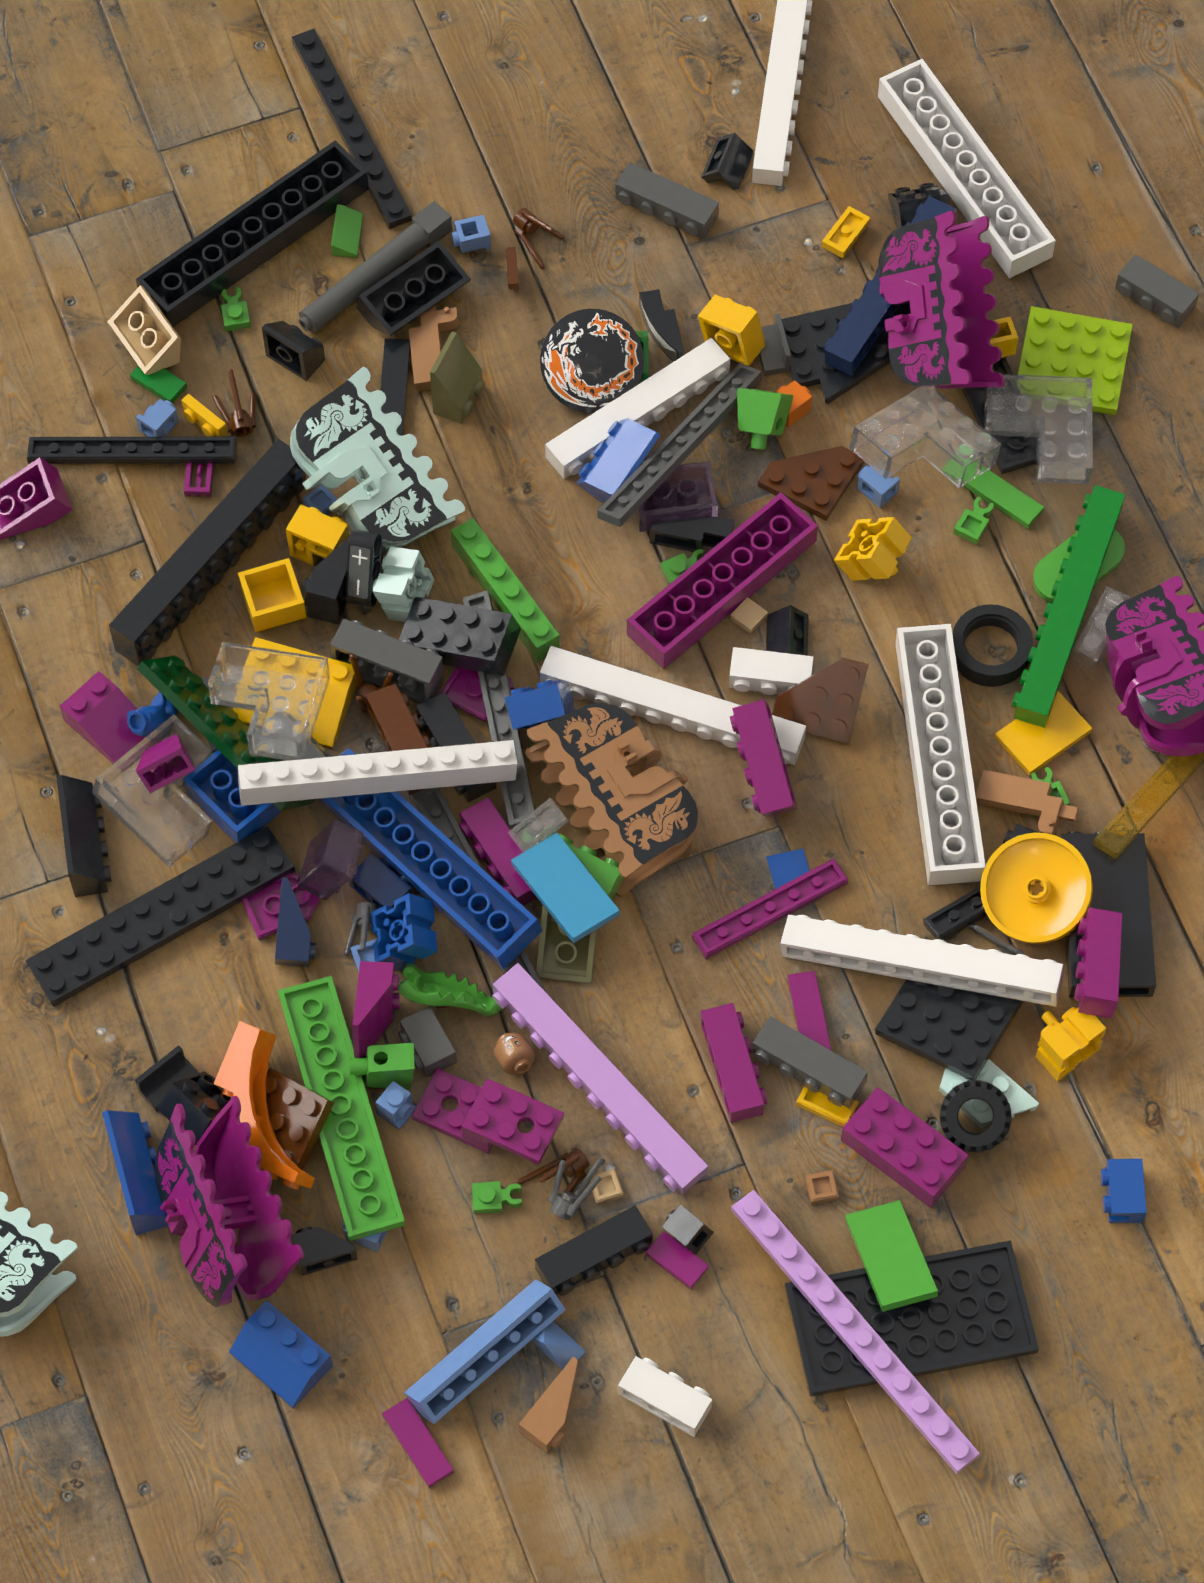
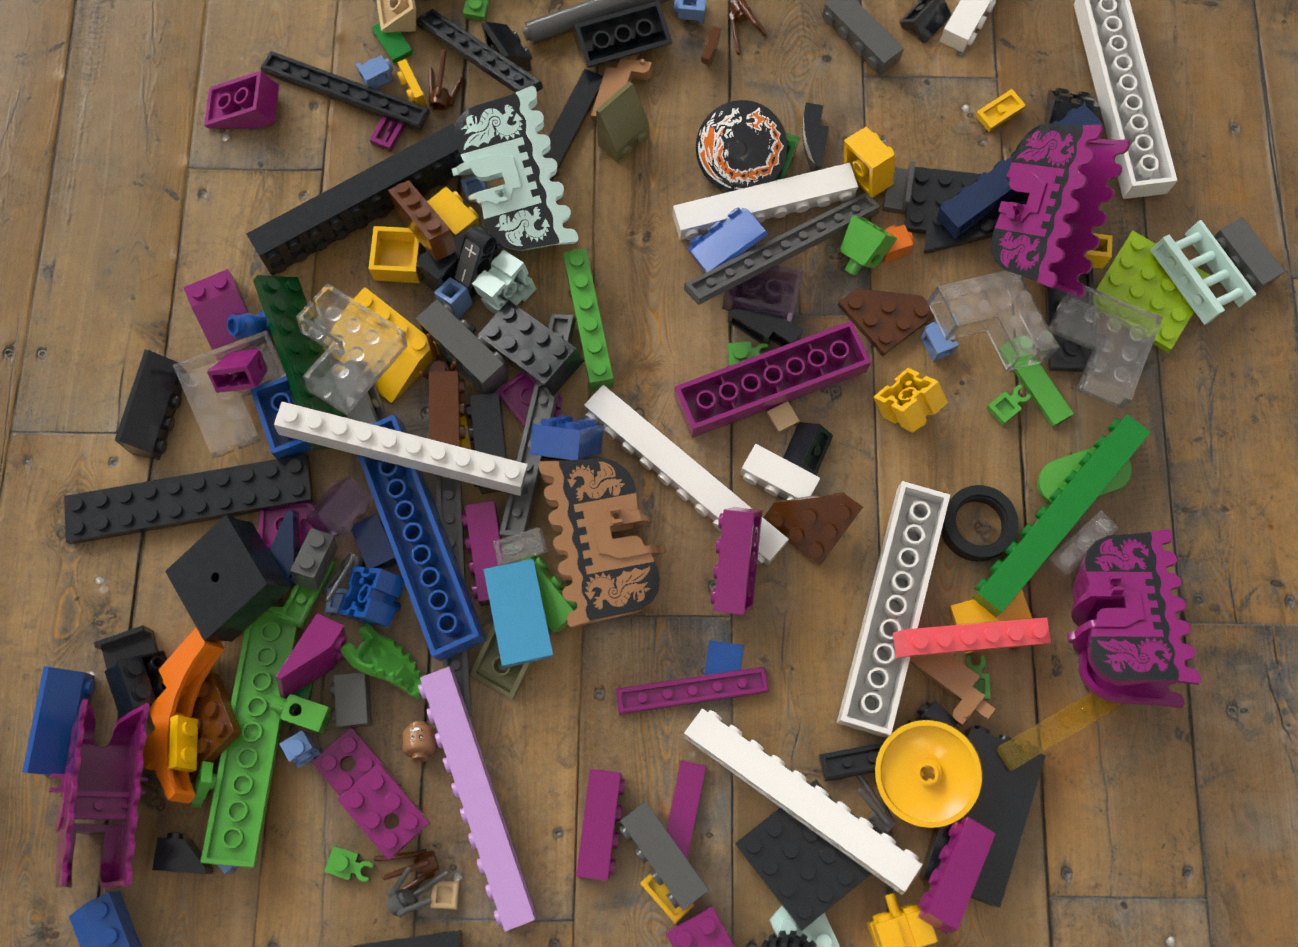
camera: 20 degrees right, 10 degrees up
(250, 966) = (227, 579): none -> black container
(267, 359) = (477, 52): none -> black tile
(280, 1138) = (183, 743): none -> yellow plate
(292, 546) = (422, 220): none -> reddish brown brick
(315, 1165) = (204, 781): none -> bright green plate
(328, 919) = (314, 559): none -> dark grey brick
(331, 956) = (302, 601): none -> bright green tile
(353, 609) = (455, 296): none -> medium blue brick
(1026, 748) = (971, 637): none -> coral brick
(1107, 336) = (1188, 280): none -> light aqua fence

